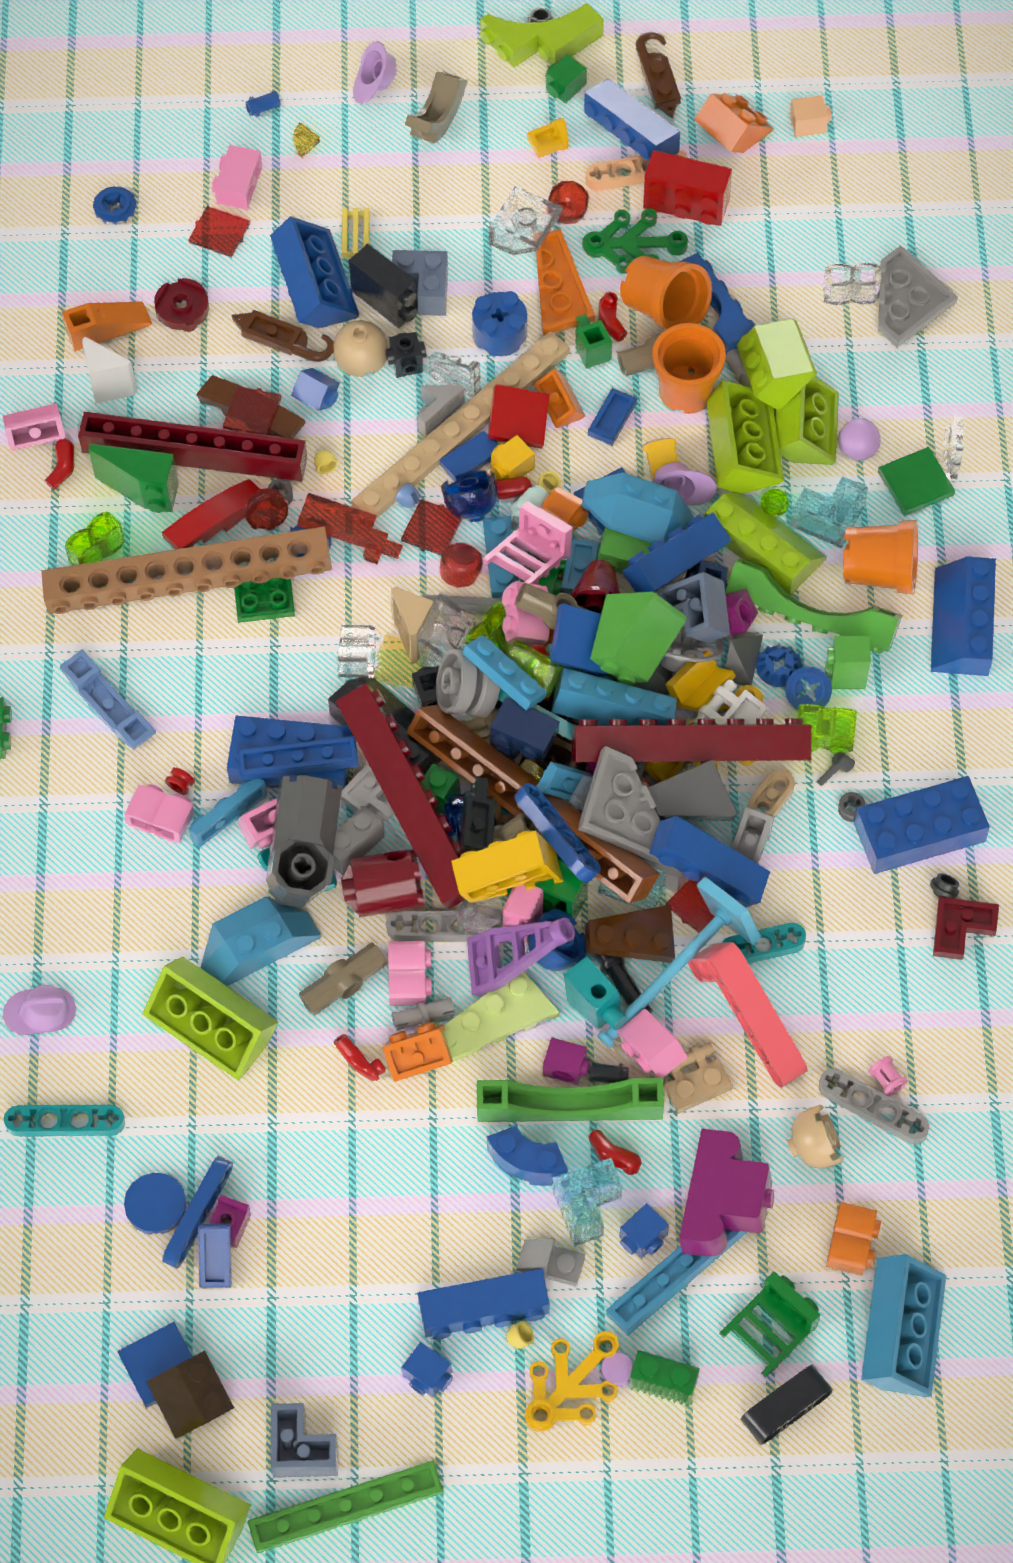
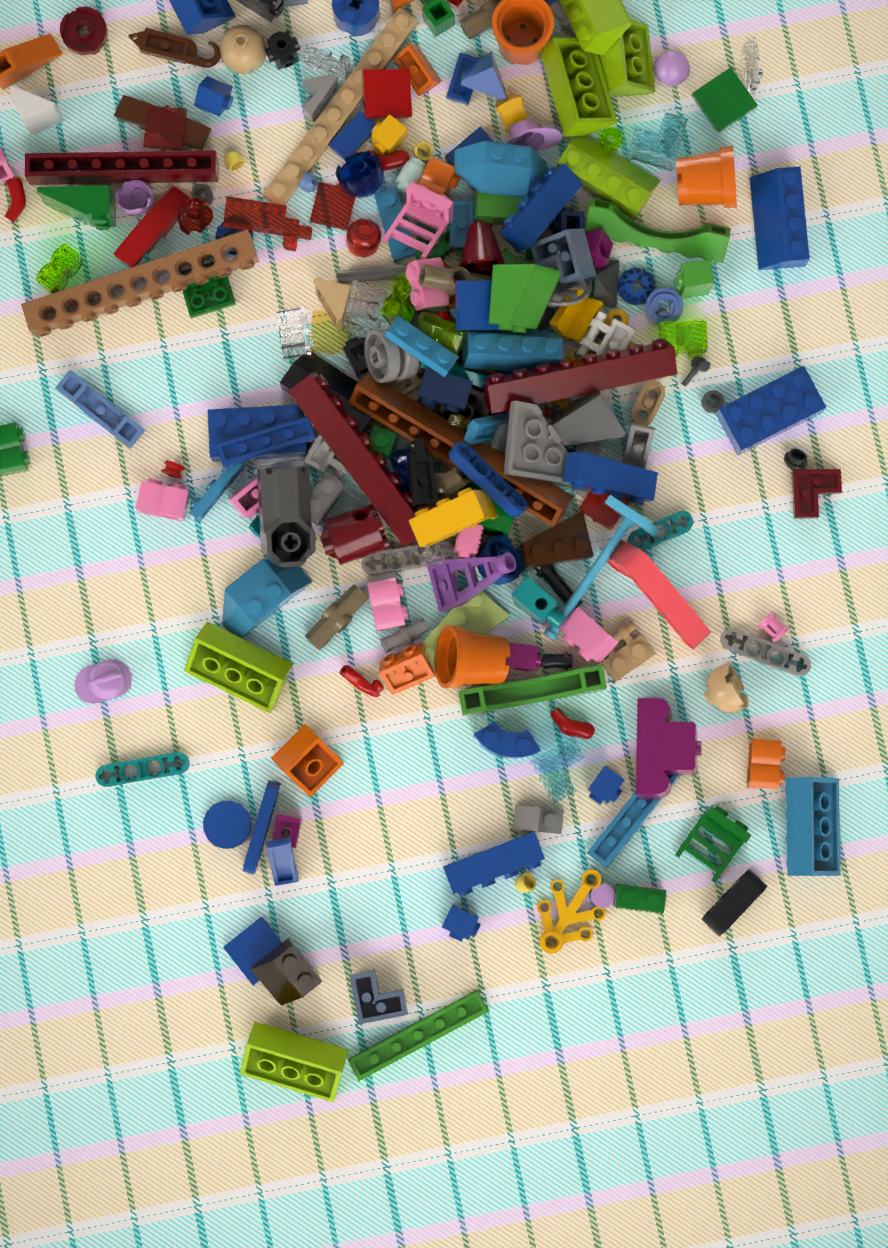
camera: 10 degrees left, 20 degrees up
(200, 481) = (134, 197): none -> lavender hair
(272, 1141) = (307, 760): none -> orange slope
(499, 1044) = (470, 658): none -> orange piece
(636, 414) = (484, 77): none -> slope

